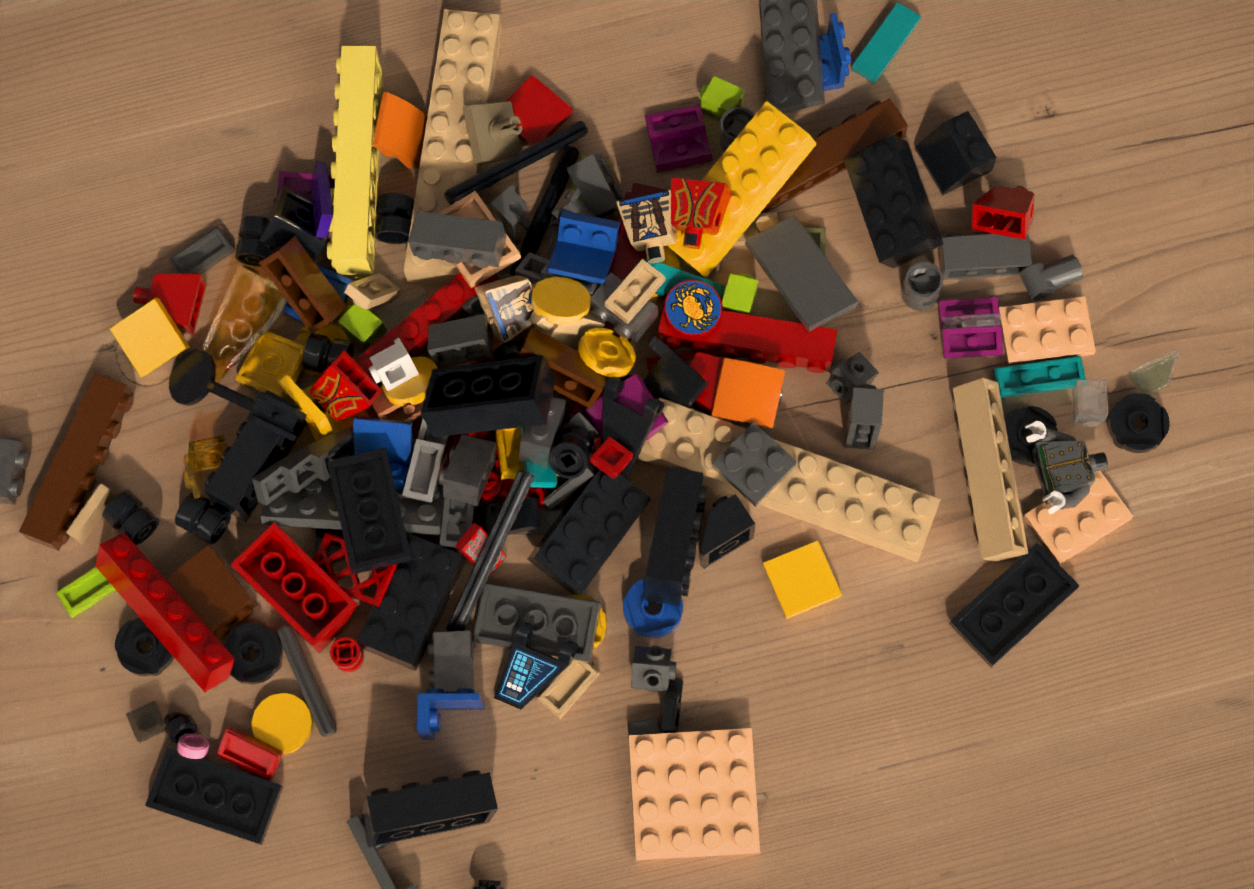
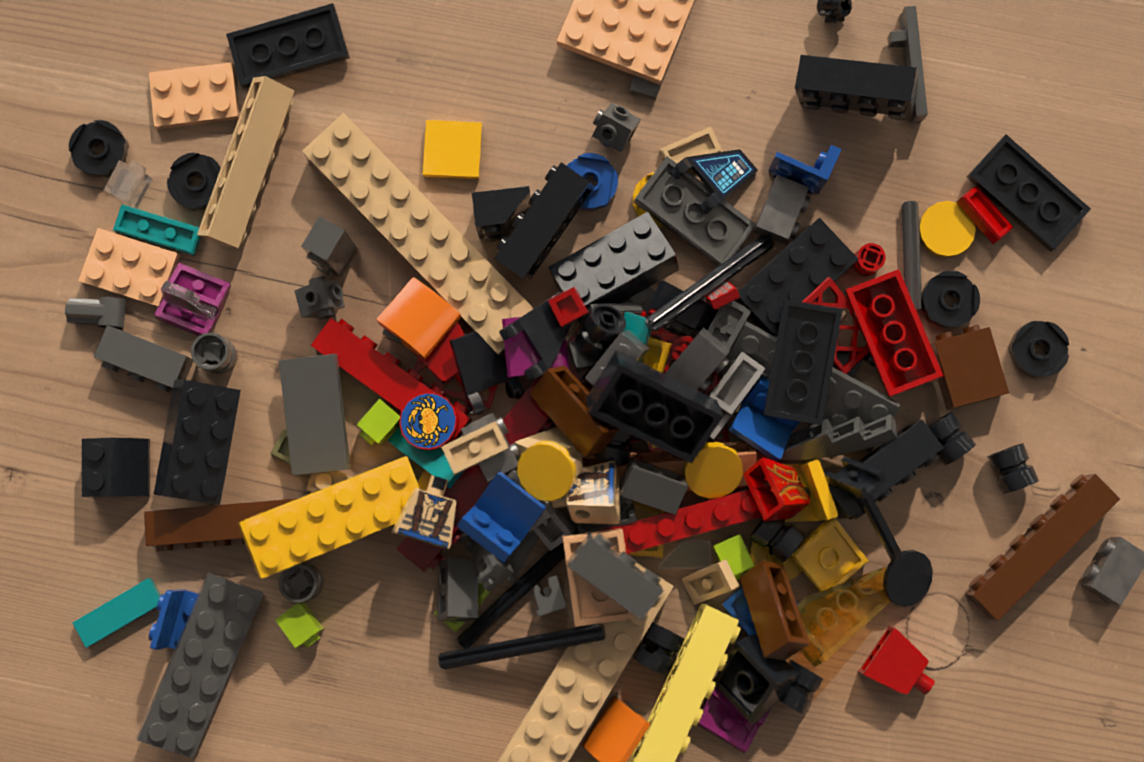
camera: 160 degrees left, 10 degrees up
(84, 592) = (1070, 425): lime tile -> none
(90, 514) = (1047, 490): tan tile -> none
(146, 721) = (1063, 281): clear smoke plate -> none
(149, 337) = (933, 634): yellow tile -> none
(164, 612) = (1017, 363): red brick -> none
(178, 725) = (1036, 261): black tile -> none
(193, 746) = (1031, 241): bright pink tile -> none
(201, 456) = (927, 499): clear yellow bracket -> none
(203, 253) = (851, 702): dark grey tile -> none
(321, 199) = (722, 691): dark purple tile -> none
(392, 366) = (725, 488): white brick -> none
(492, 131) = (529, 688): dark tan tile -> none
(538, 110) = (480, 699): red tile -> none
(606, 352) = (526, 409): yellow tile -> none
(672, 706) = (613, 89): black tile -> none
(678, 138) = (358, 608): magenta slope -> none
(698, 208) = (379, 504): torso -> none
(754, 464) = (445, 250): dark grey plate -> none
(1004, 211) = (101, 384): red torso -> none
(1063, 466) = (183, 127): dark grey torso -> none
(1155, 374) = (59, 186): clear tile -> none

